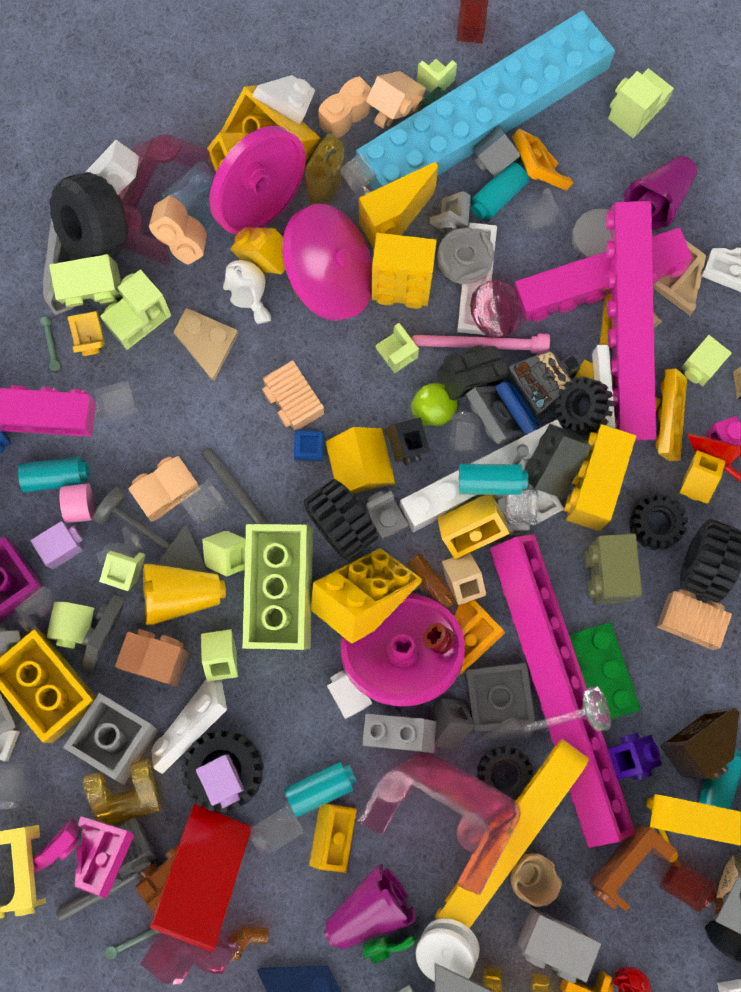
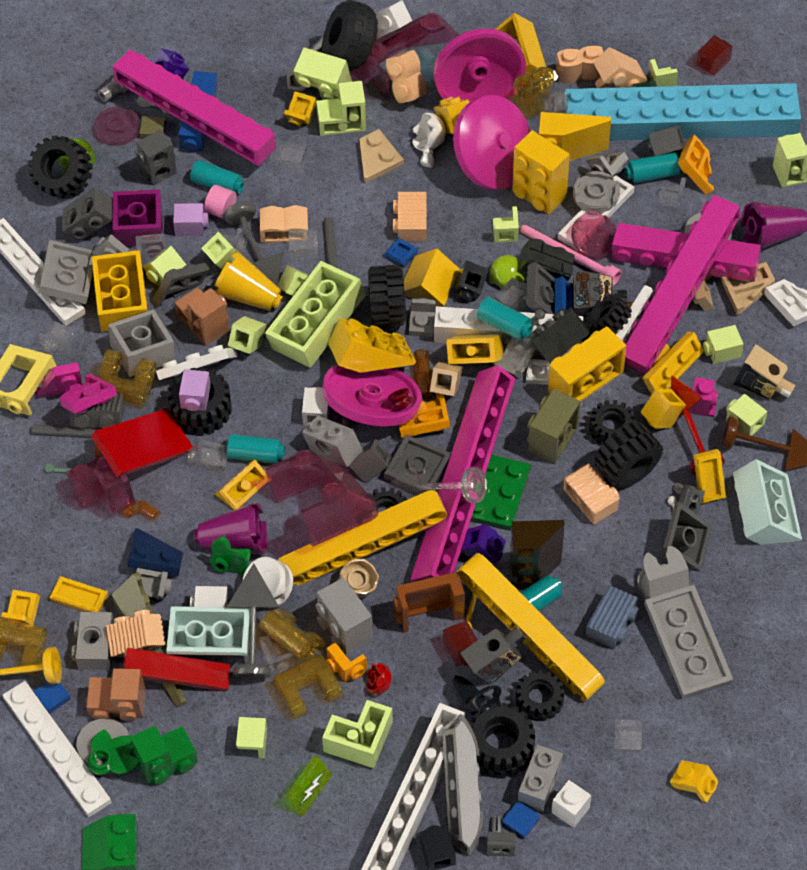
camera: 35 degrees right, 20 degrees down
(54, 365) = (265, 120): sand green hinge -> none
(286, 96) = (541, 35): white wing -> none

